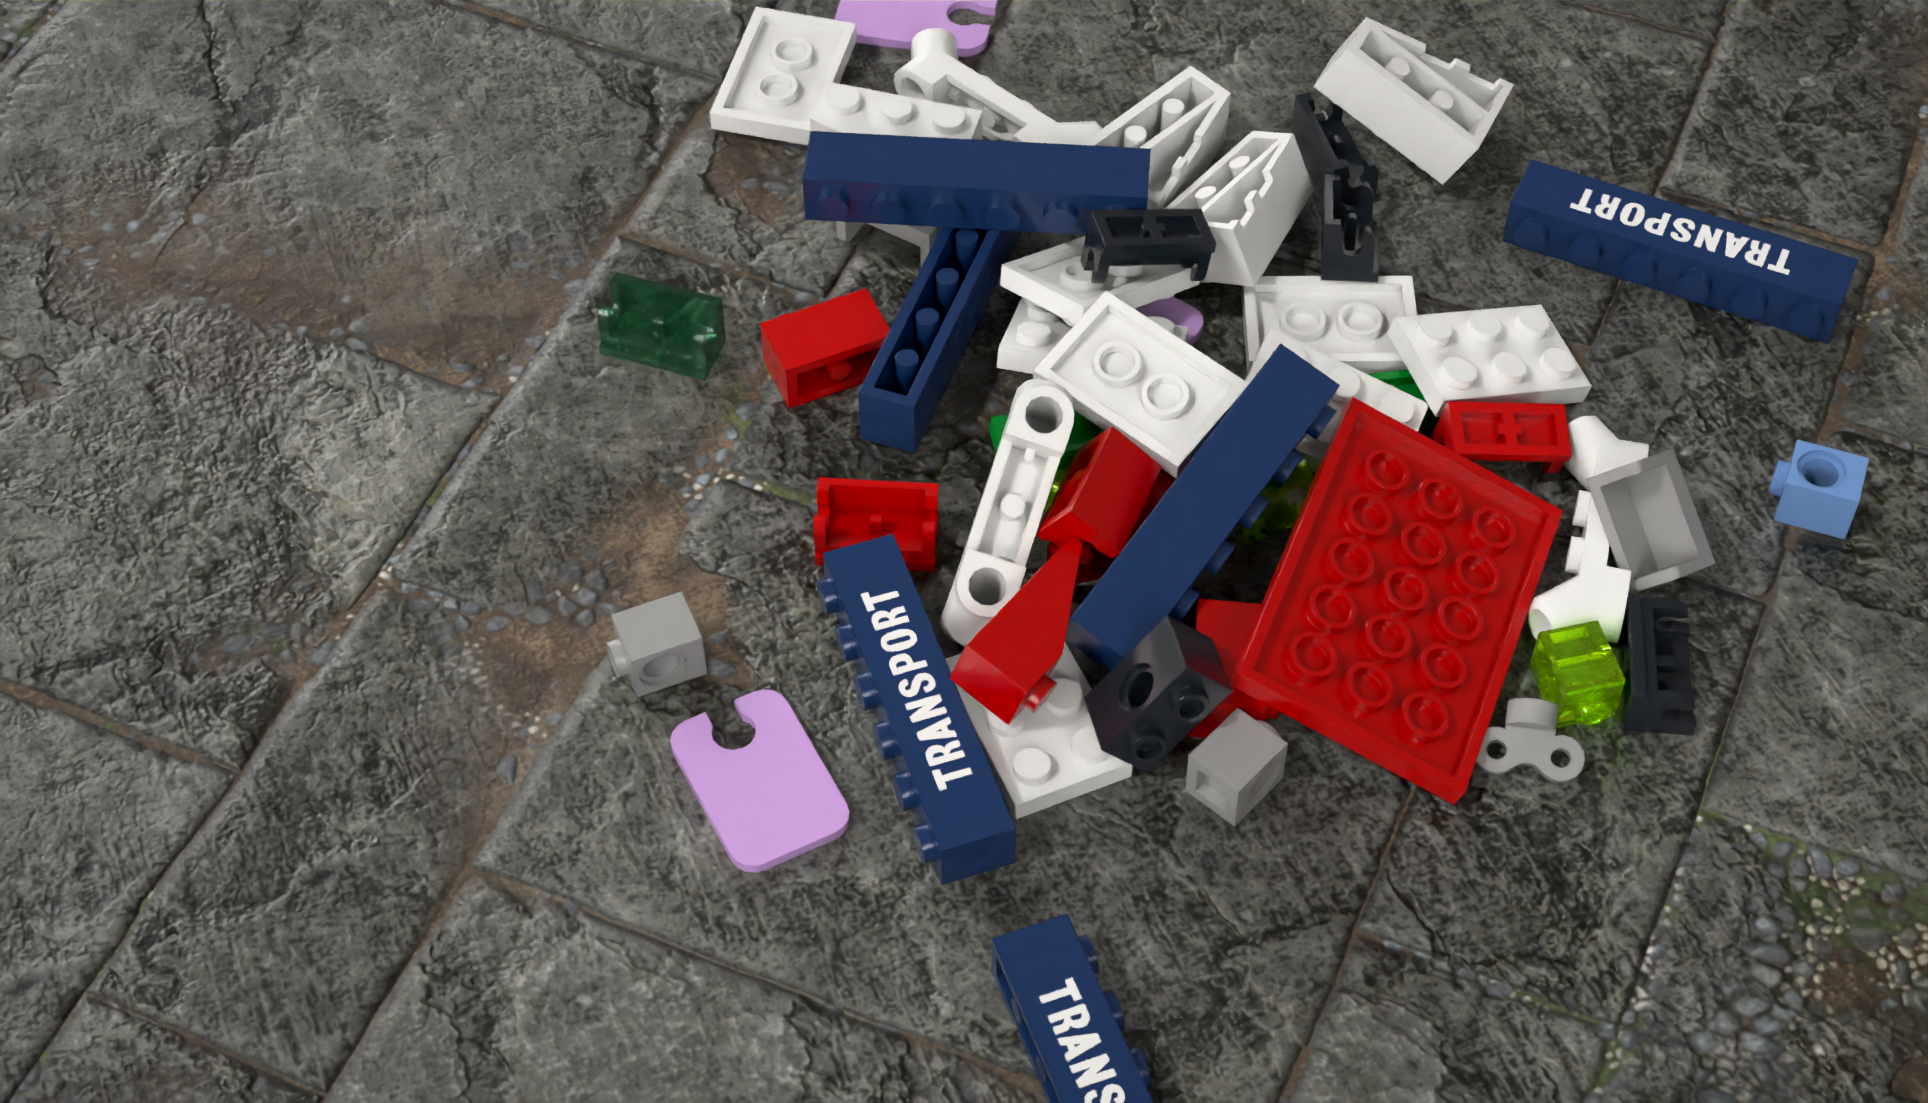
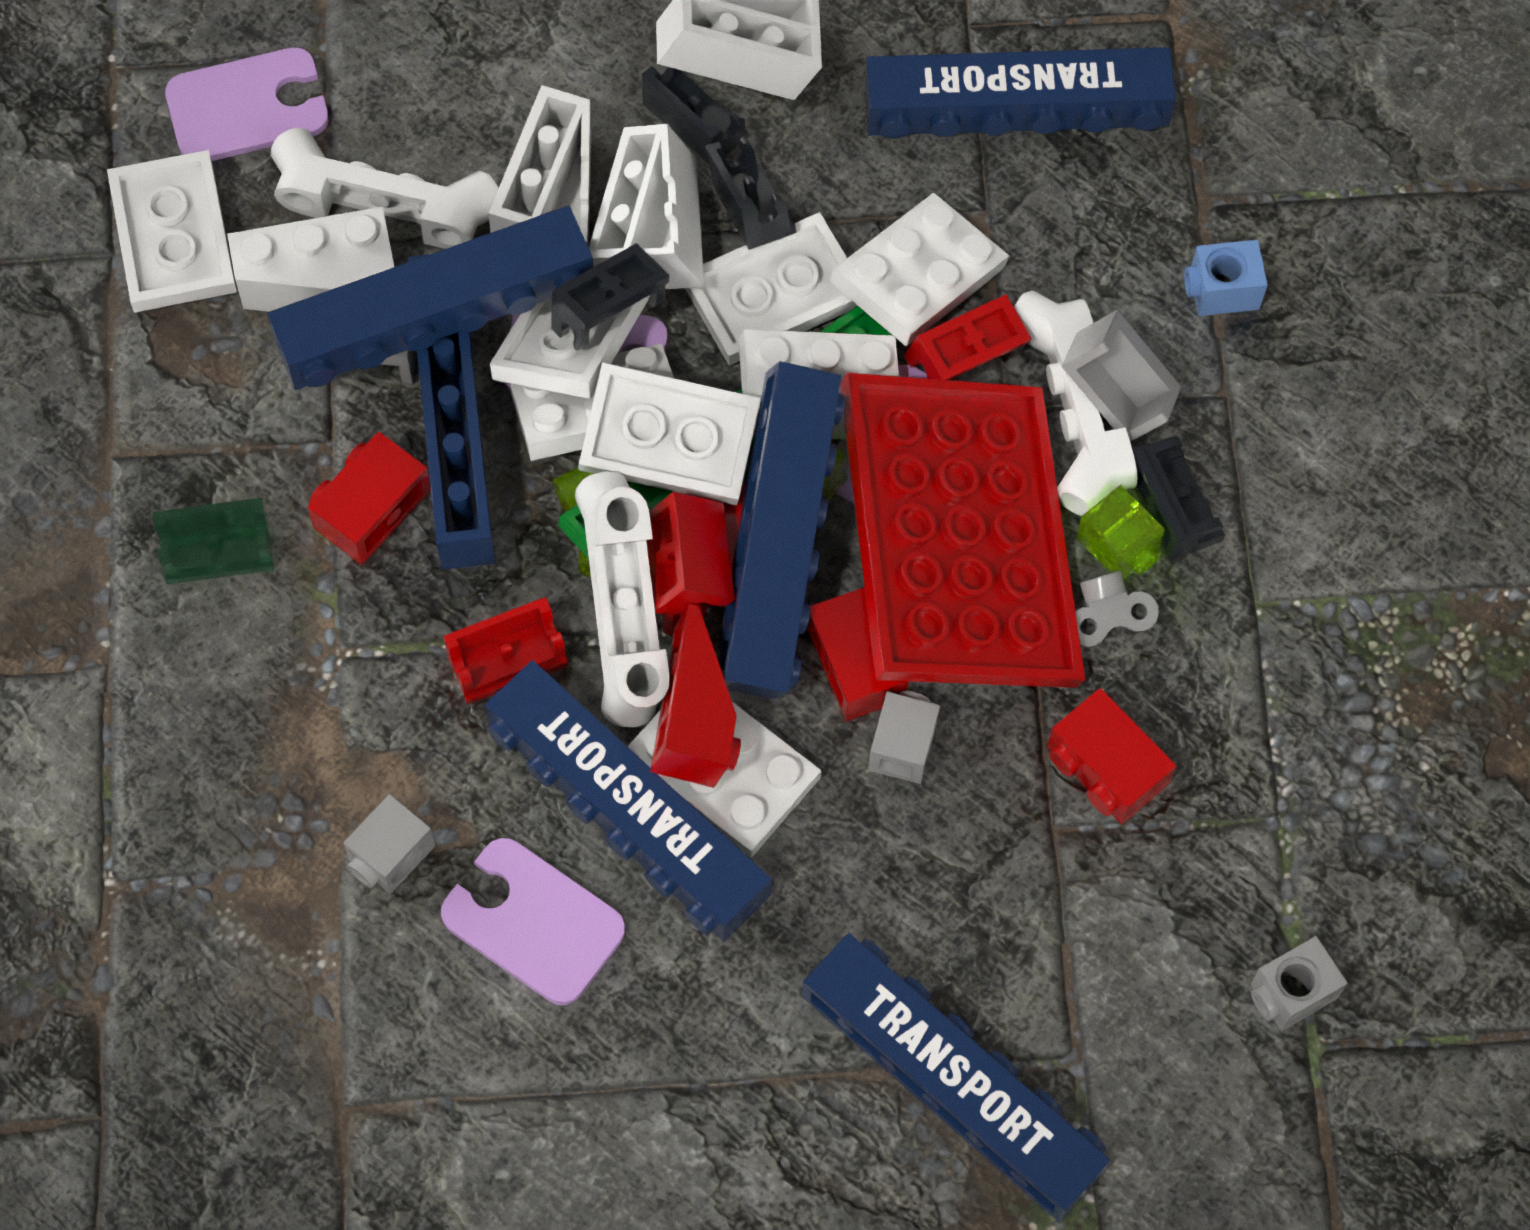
camera: 30 degrees left, 15 degrees up
(1157, 694) = (822, 711): black brick -> none
(1452, 879) = (1109, 757): none -> red brick

